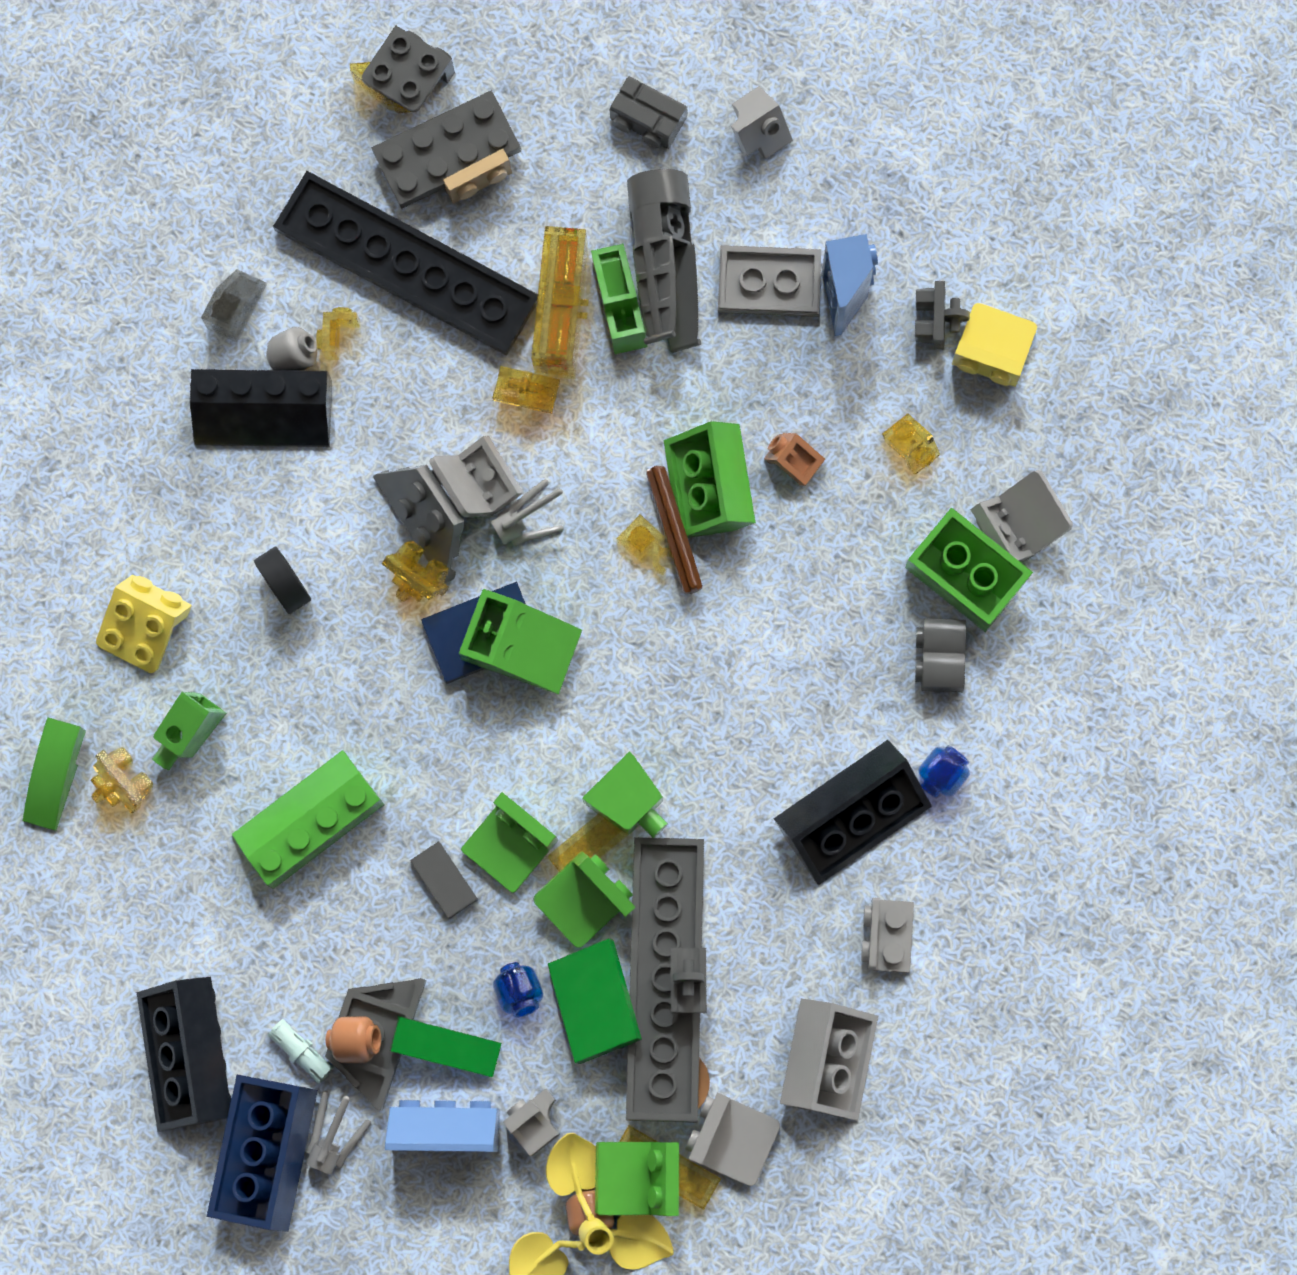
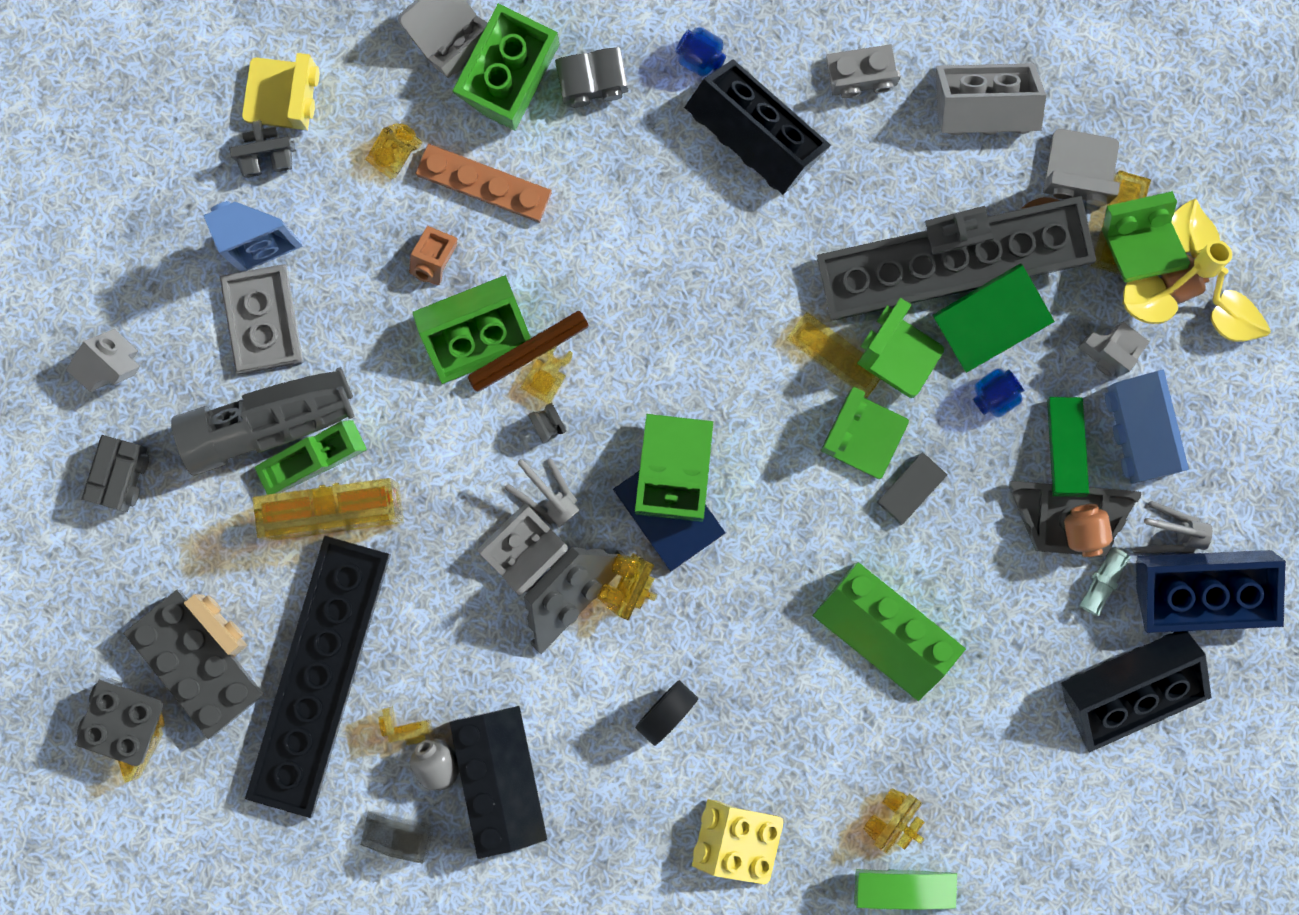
camera: 110 degrees left, 5 degrees up
(192, 716) = (824, 766): bright green torso -> none
(526, 389) = (423, 524): clear yellow hips -> none
(597, 531) = (547, 422): none -> dark grey wheel
(627, 798) = (797, 331): bright green torso -> none
(857, 525) = (483, 183): none -> nougat plate

